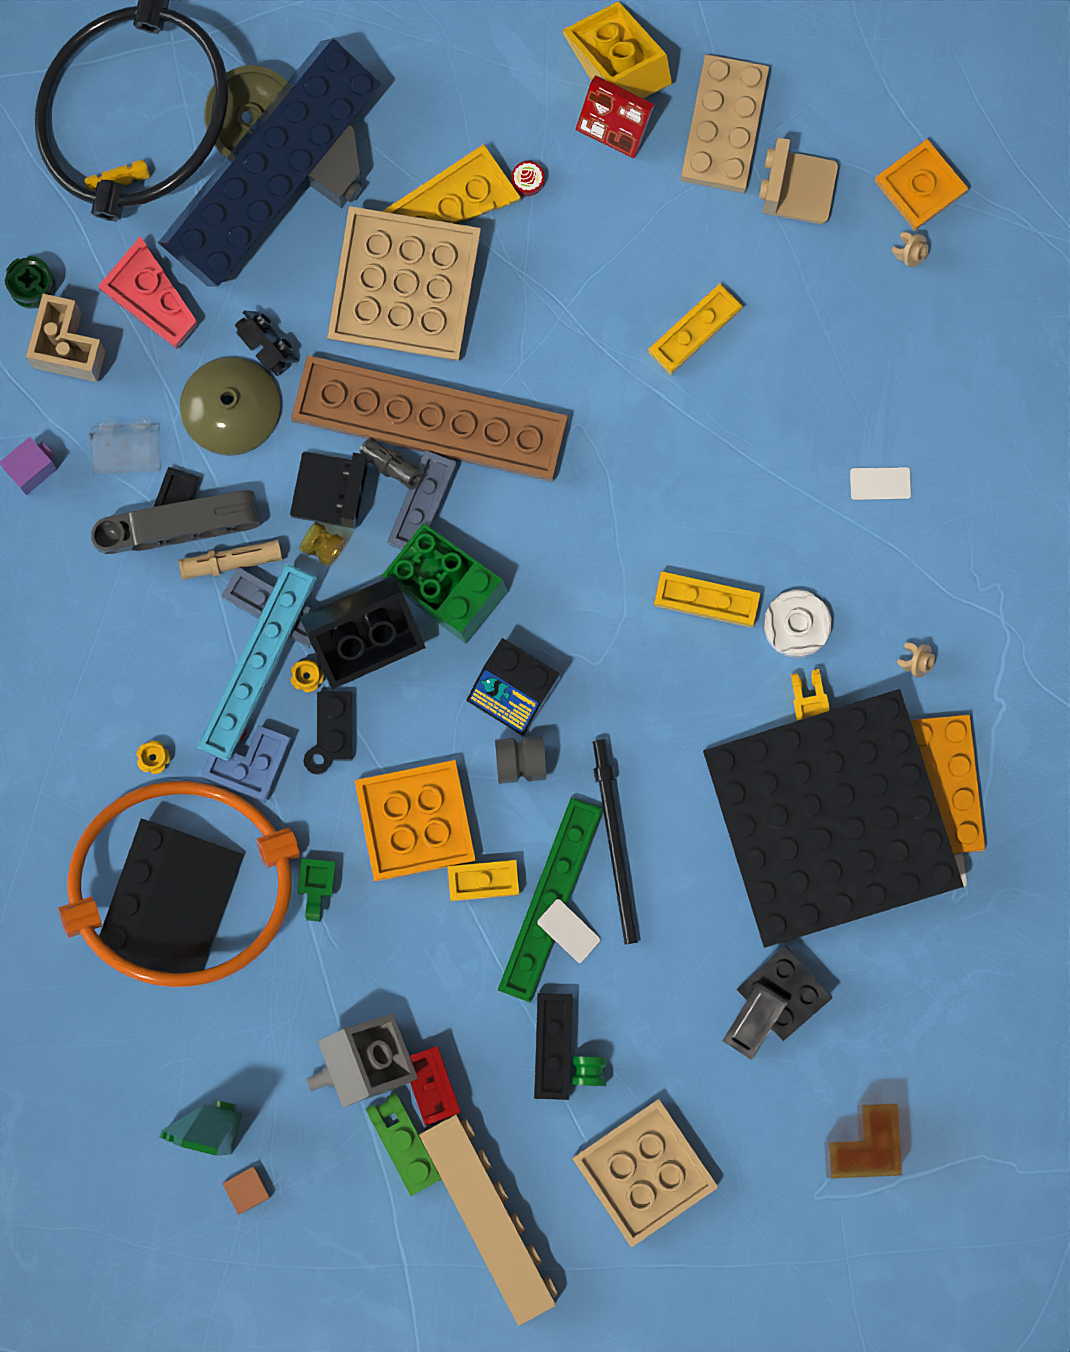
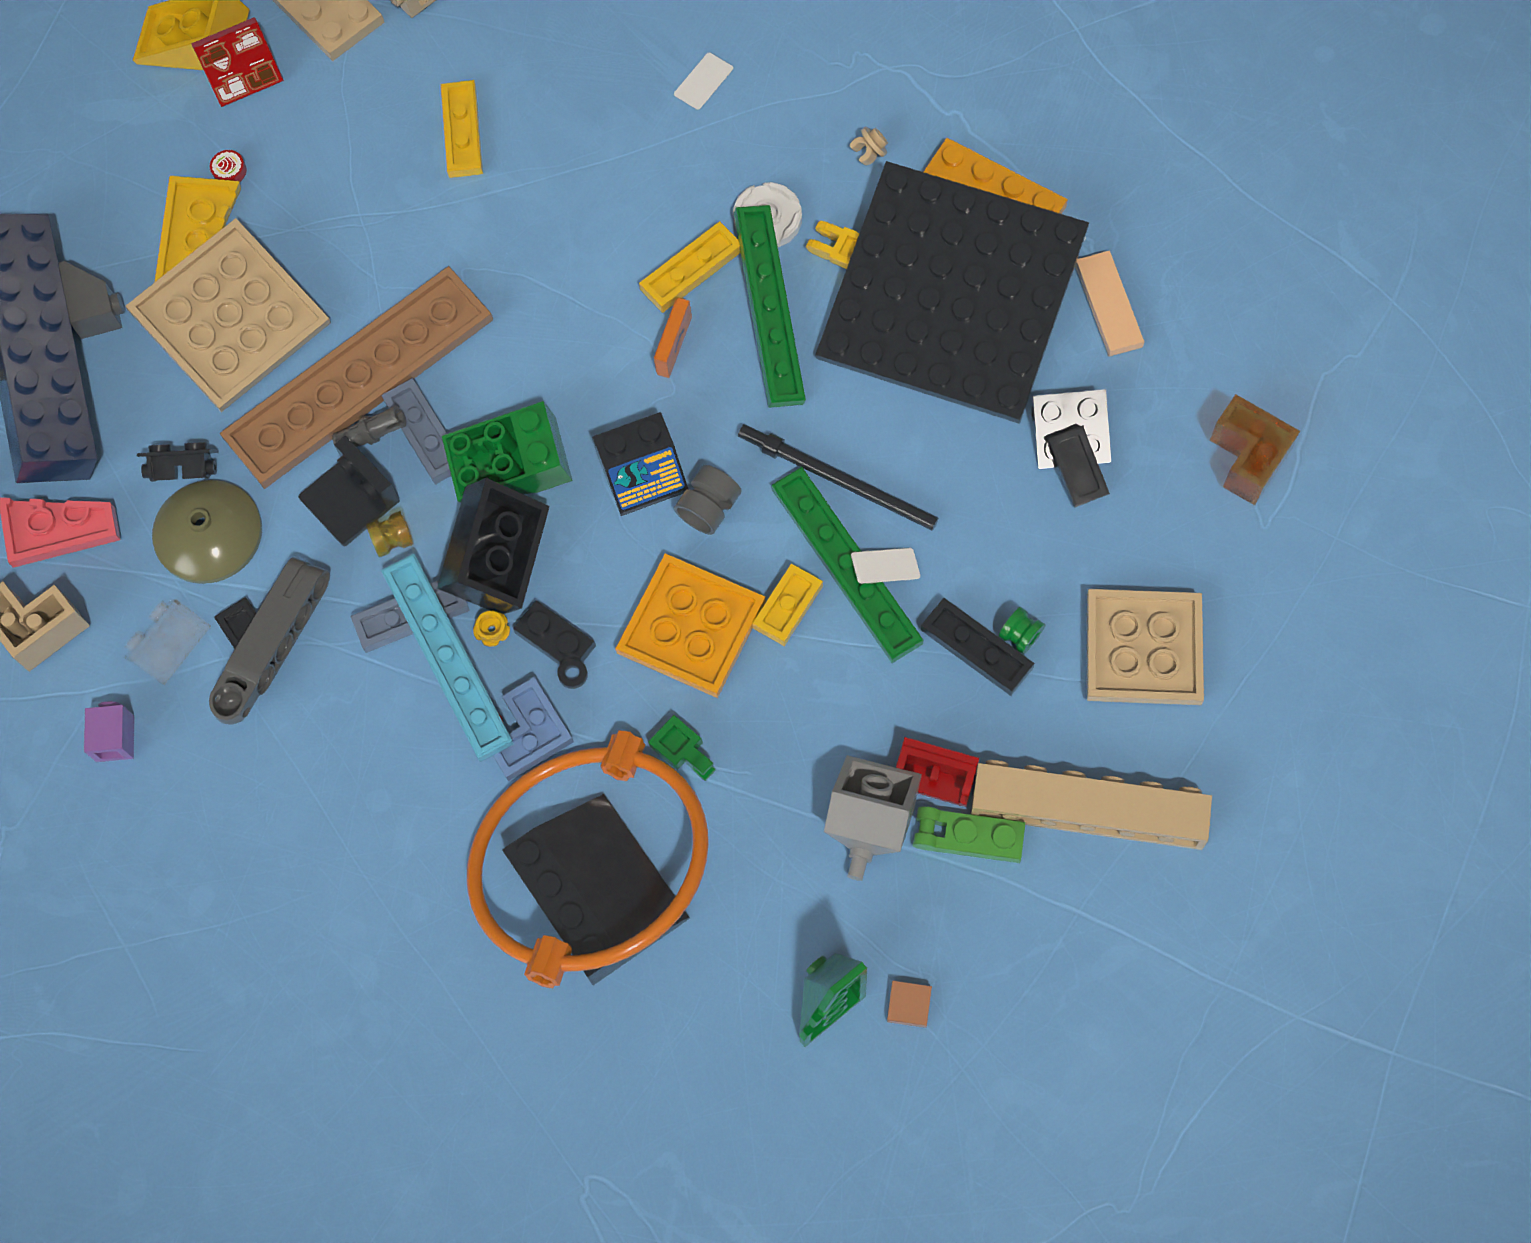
camera: 45 degrees left, 10 degrees down
(148, 749) = (452, 801): yellow plate -> none
(223, 561) = (331, 633): tan pin -> none
(635, 631) = (672, 337): none -> orange tile
(717, 684) = (769, 306): none -> green tile
(918, 946) = (1109, 303): none -> light nougat tile

